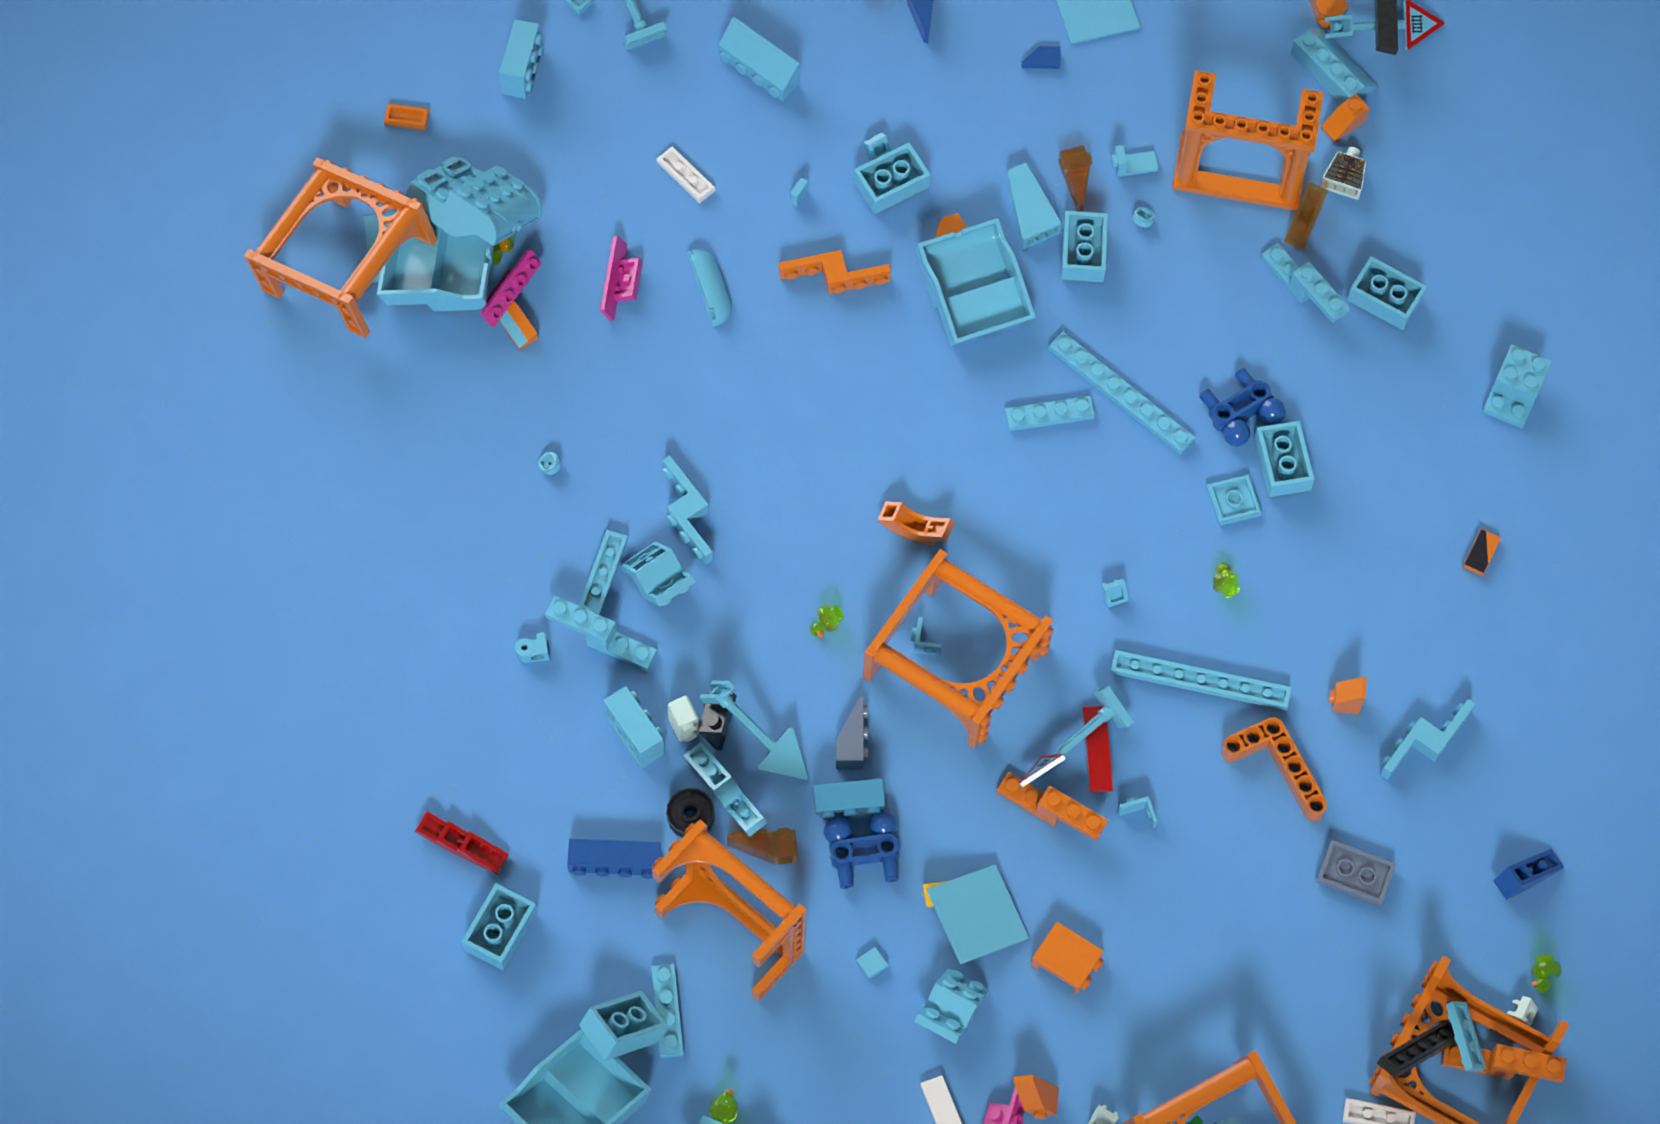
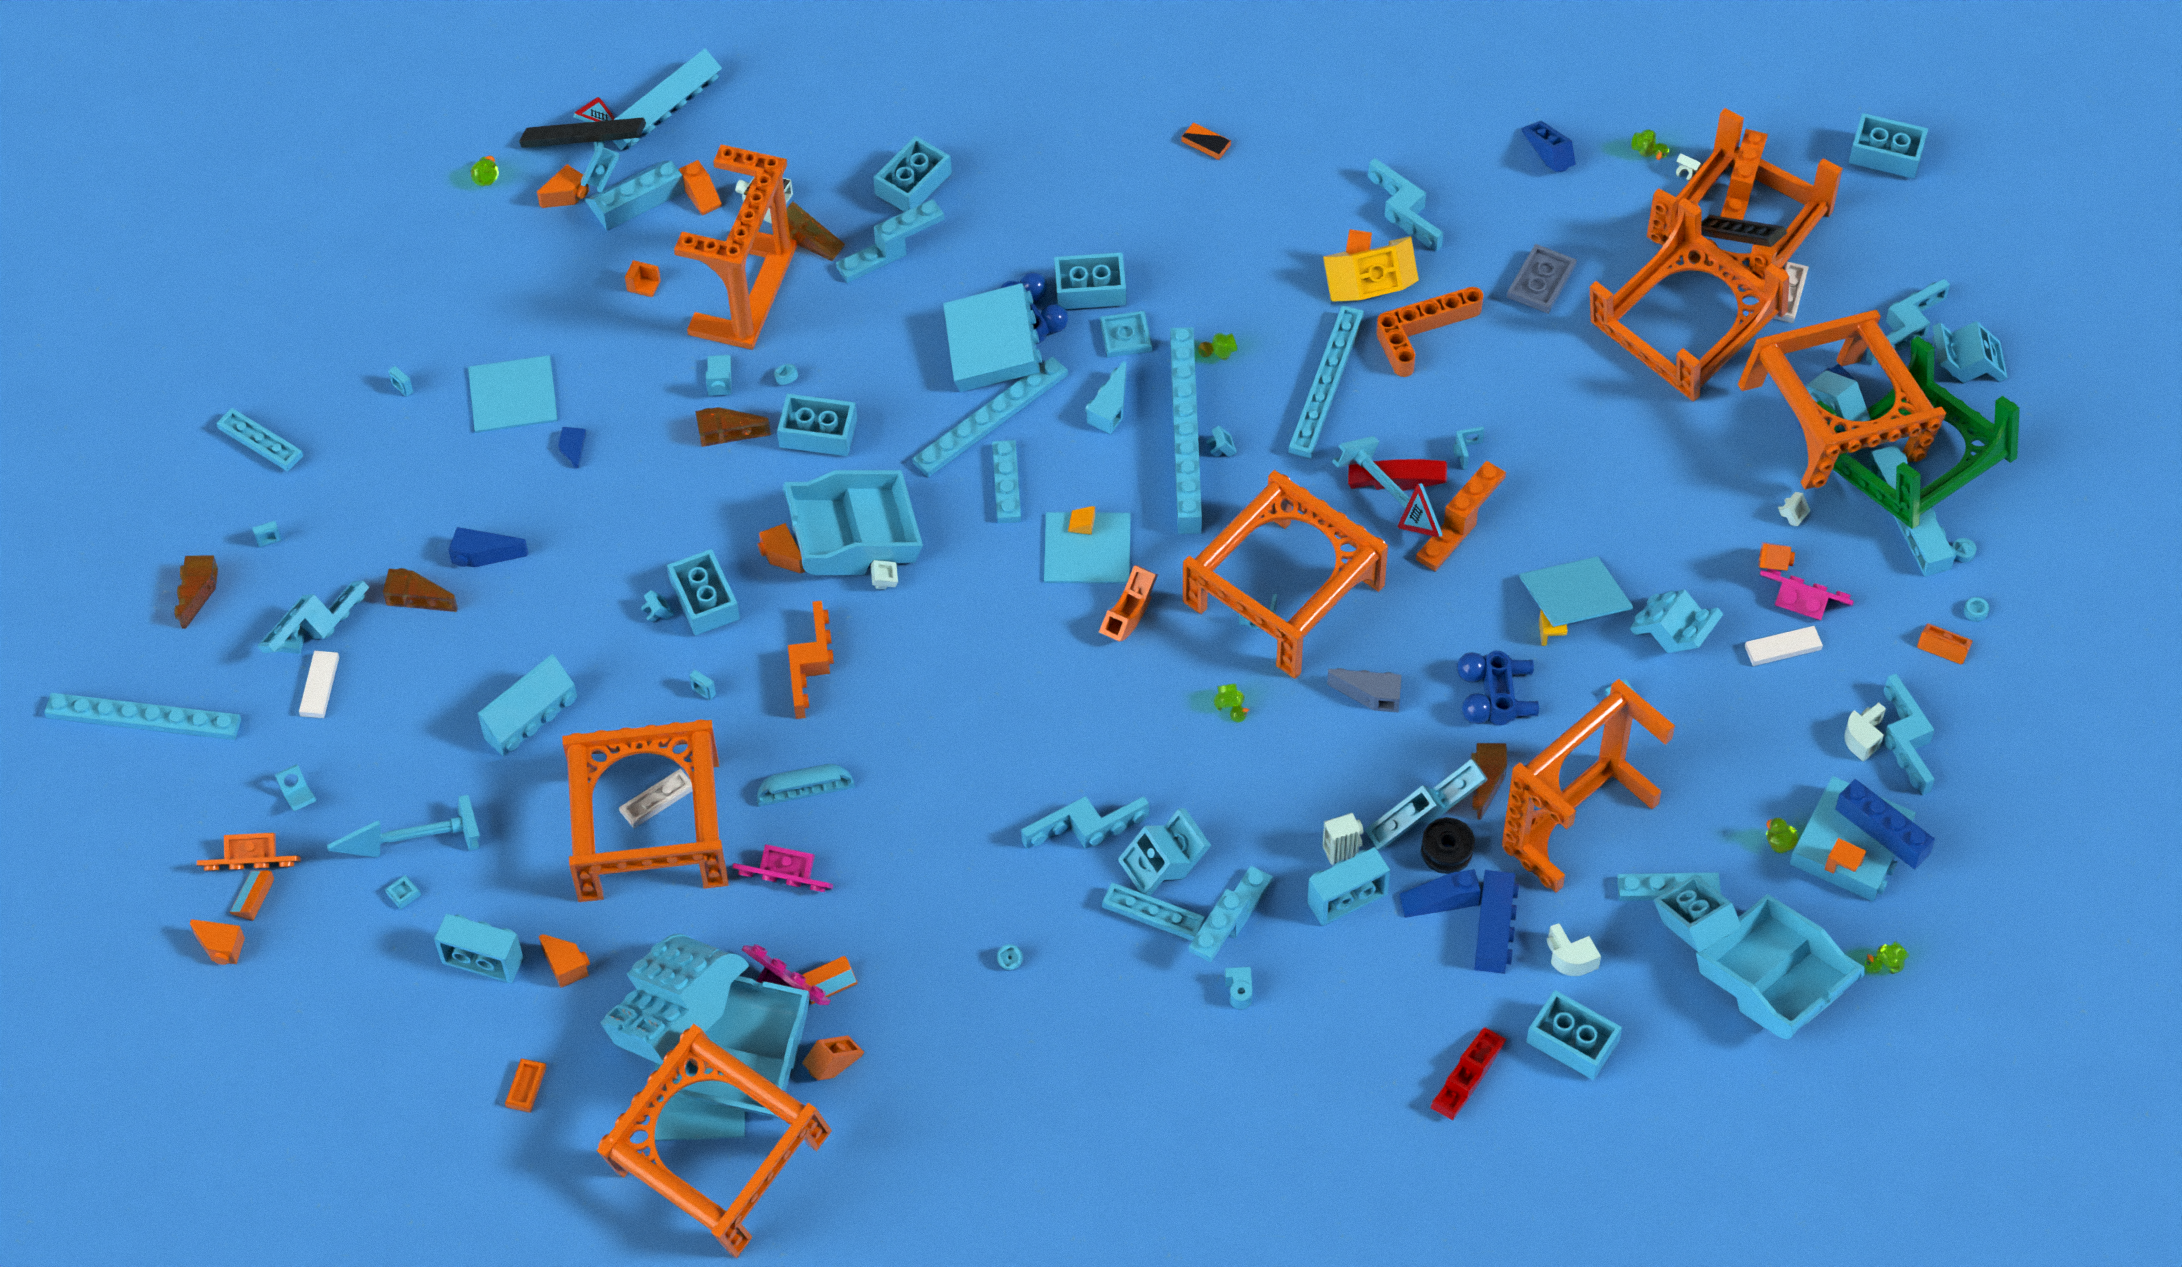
camera: 80 degrees left, 10 degrees down
(443, 336) = (831, 1057): none -> orange slope
(519, 125) = (564, 959): none -> orange slope
(582, 924) = (1572, 958): none -> light aqua brick
(639, 811) = (1442, 894): none -> blue slope
(711, 188) = (707, 851): none -> orange arch
(715, 723) = (1346, 797): black bracket -> none
(783, 756) = (1338, 771): medium azure piece -> none
(848, 797) = (1443, 691): dark azure slope -> none
(929, 319) = (884, 574): none -> light aqua tile
(986, 489) = (1087, 557): none -> medium azure piece
(1010, 480) = (1082, 520): none -> light orange slope
(1031, 209) = (755, 471): medium azure slope -> none
(1068, 957) = (1622, 521): orange panel -> none
(1123, 557) = (1185, 431): none -> medium azure brick
(1146, 491) = (1108, 406): none -> medium azure slope
(1200, 378) = (992, 337): none -> medium azure brick
(1233, 86) = (642, 278): none -> orange panel
(1329, 714) = (1371, 271): none -> yellow slope
(1405, 995) = (1686, 237): none -> orange arch
(1447, 75) = (671, 94): none -> medium azure brick
(1465, 1036) = (1720, 207): medium azure plate -> none
(1516, 386) = (1032, 85): medium azure bracket -> none

